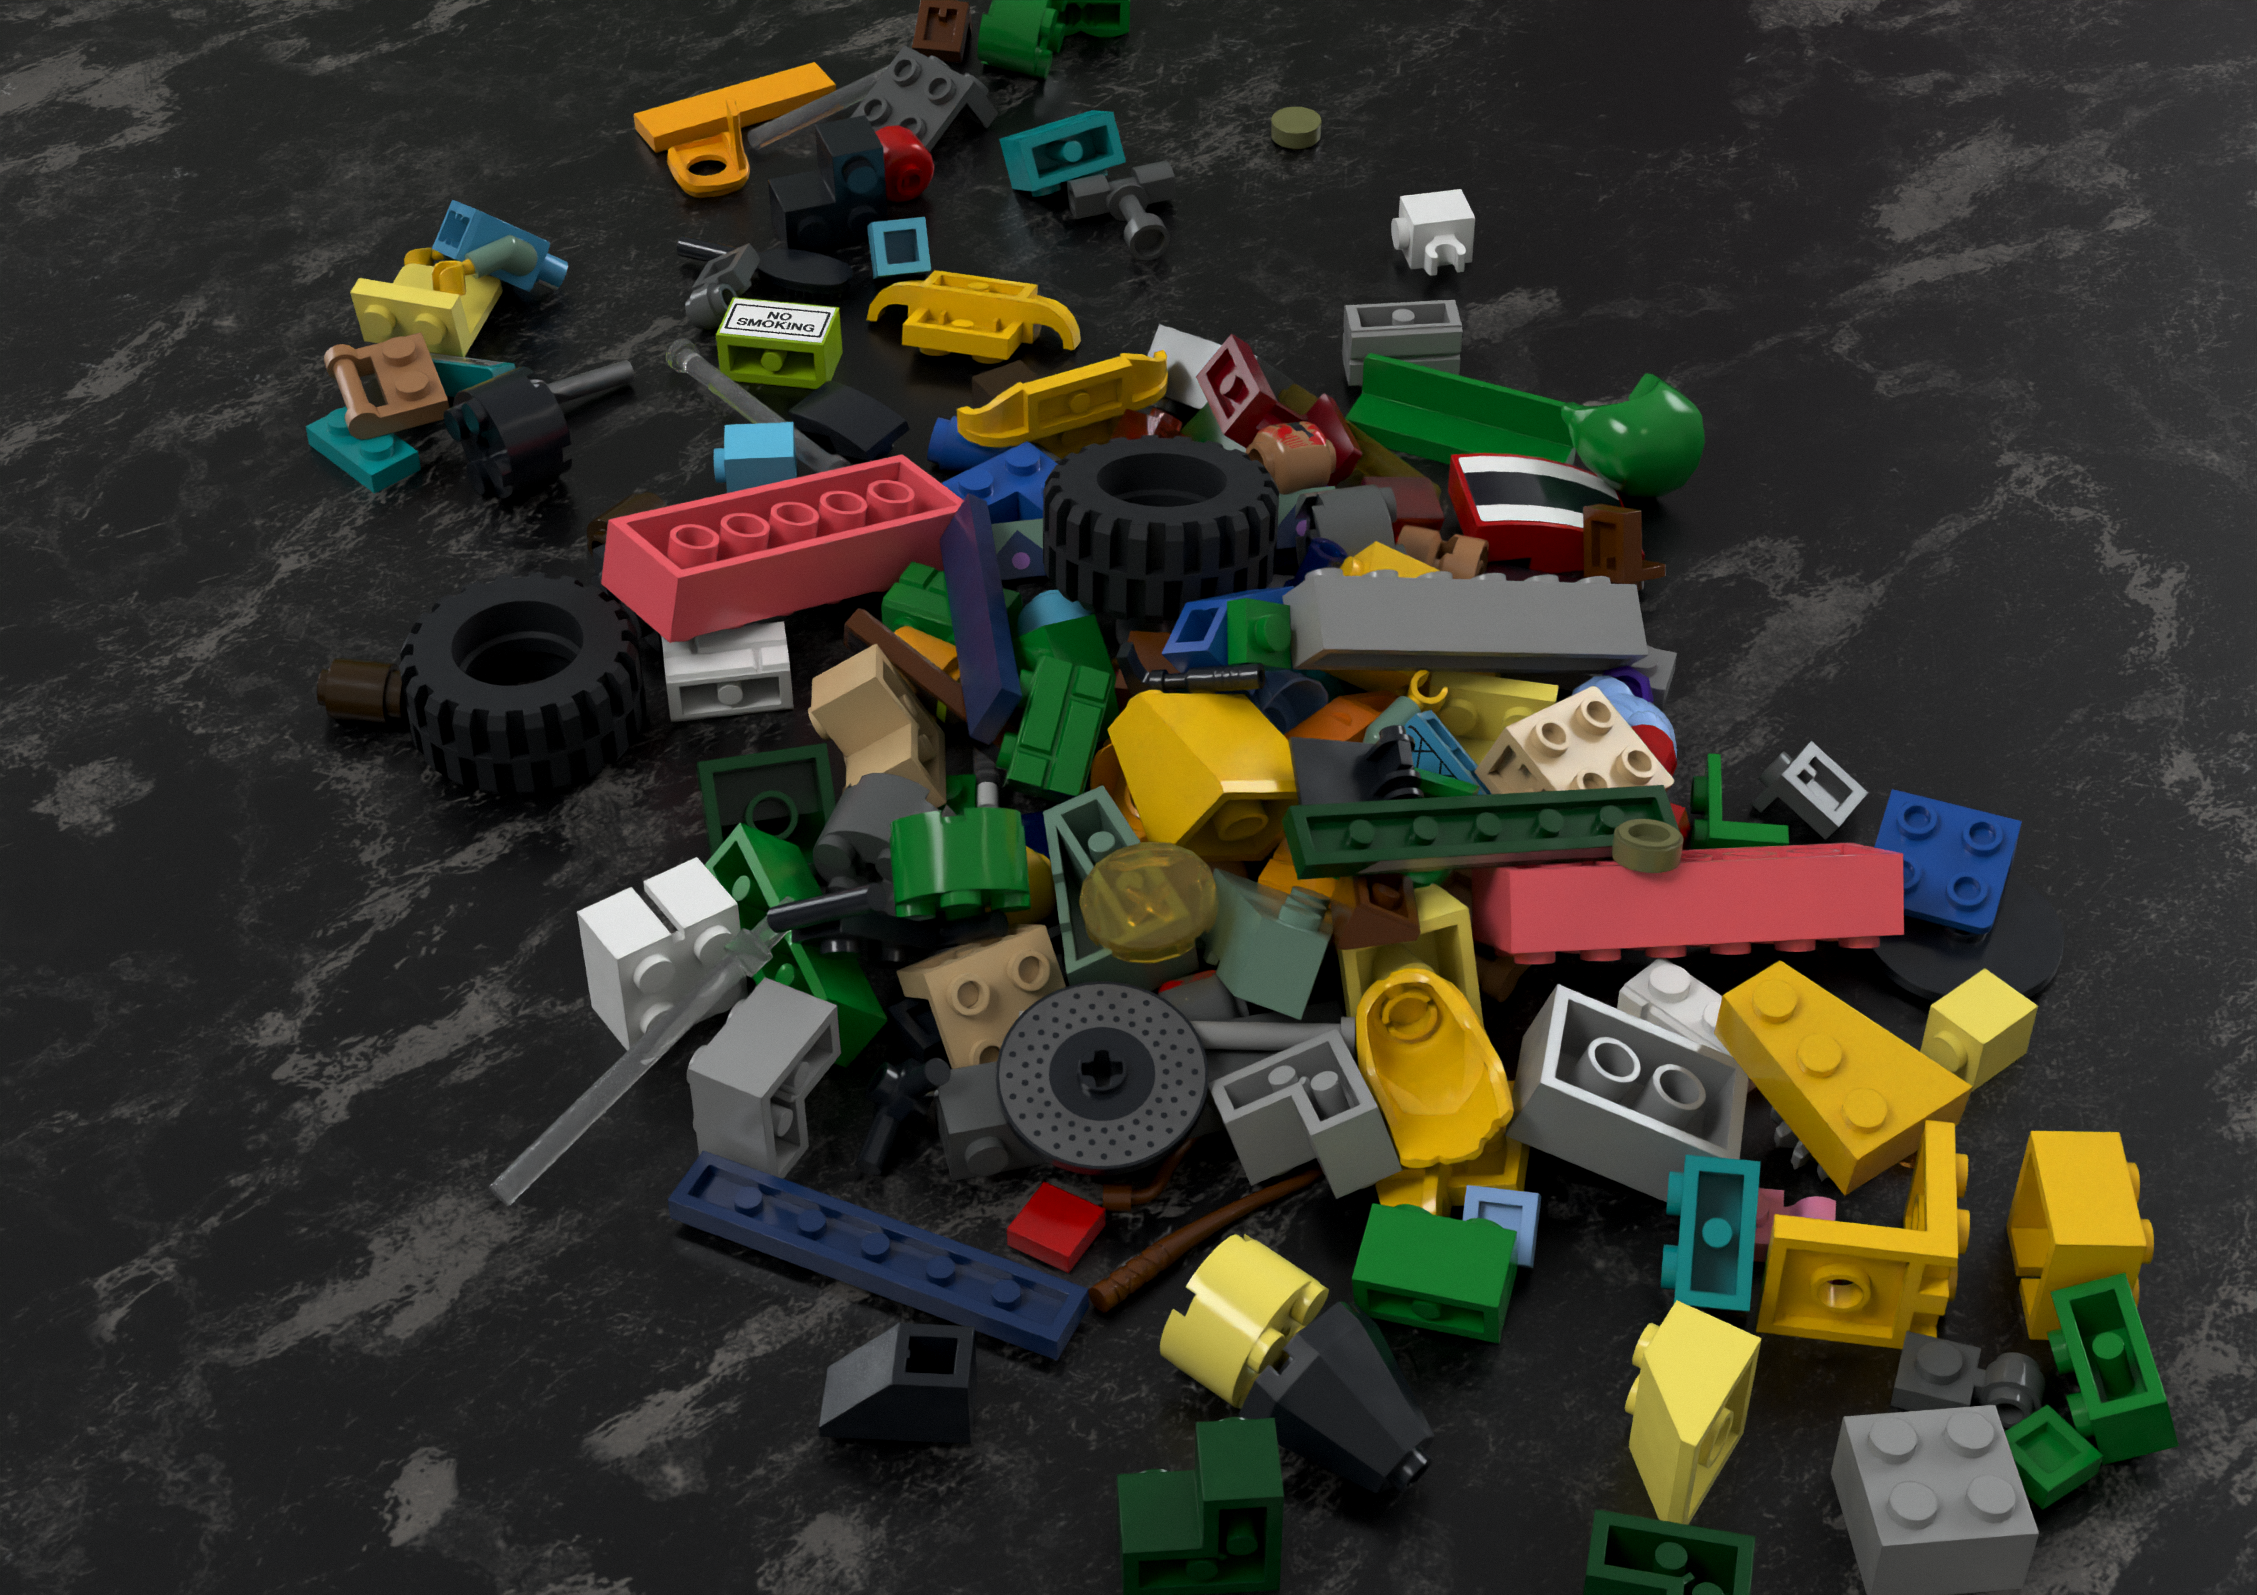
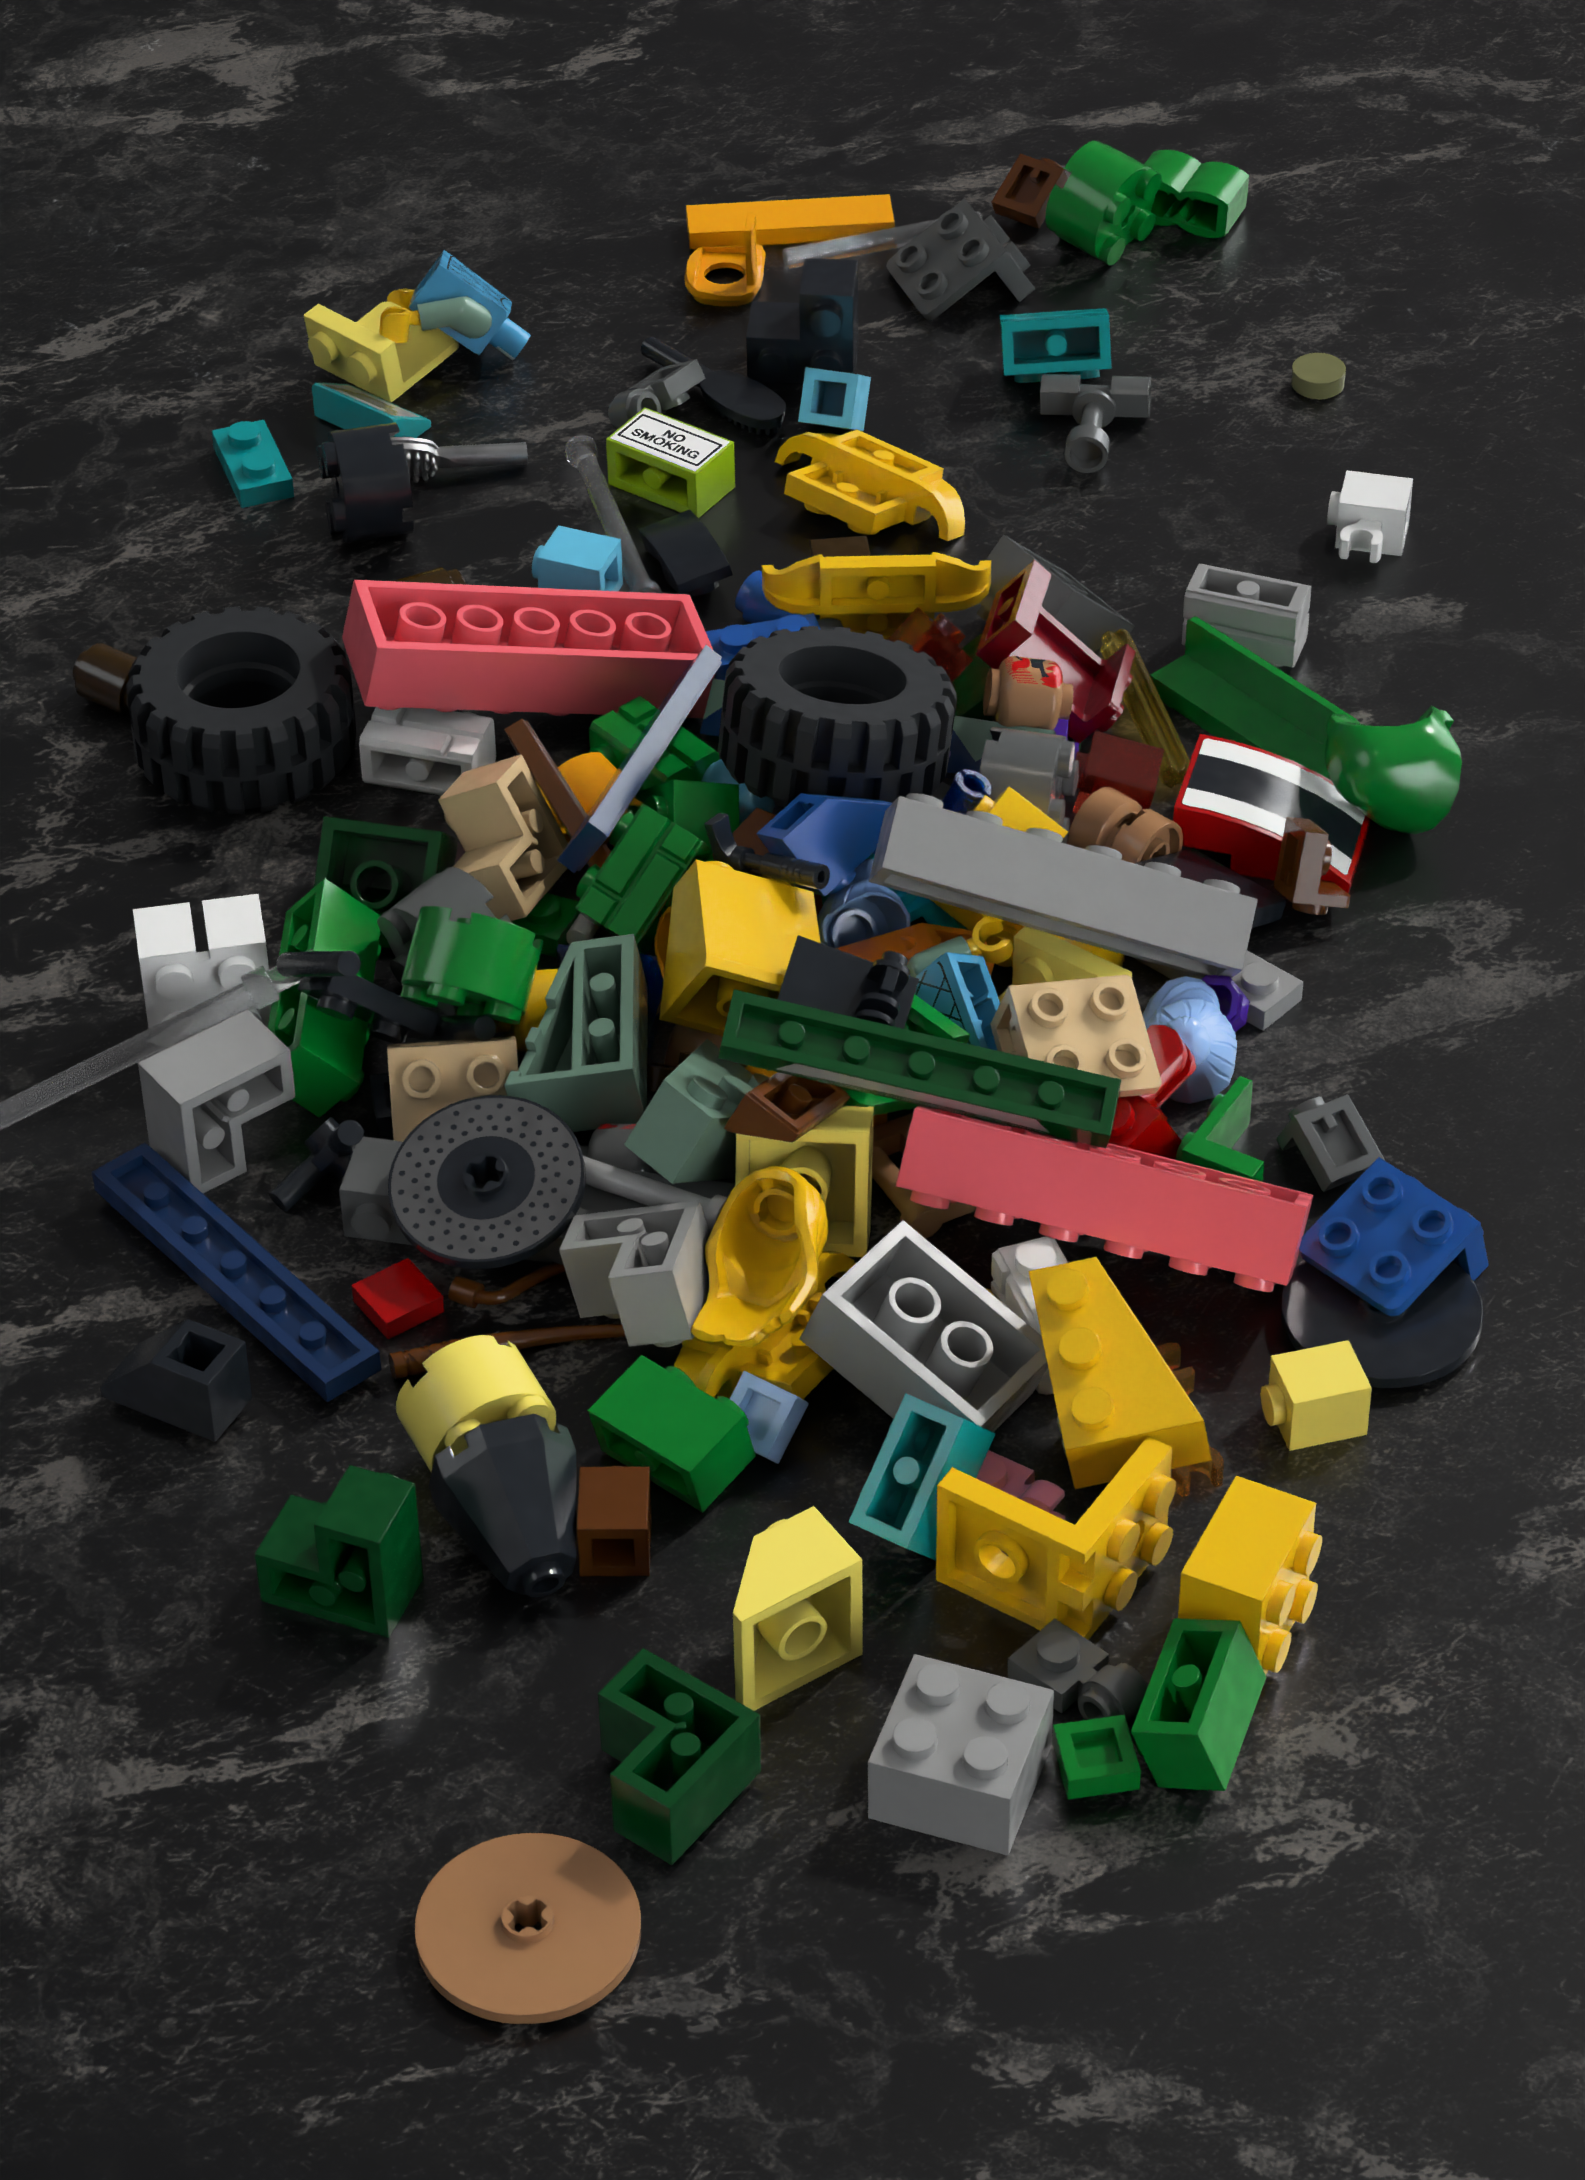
camera: 25 degrees right, 0 degrees up
(405, 379) = (309, 412): medium nougat plate -> none
(905, 163) = (893, 311): red head -> none
(1149, 901) = (600, 1043): clear yellow tile -> none
(1259, 633) = (842, 839): green plate -> none
(1444, 1378) = (614, 1521): none -> reddish brown brick
(1647, 846) = (1056, 1125): olive tile -> none

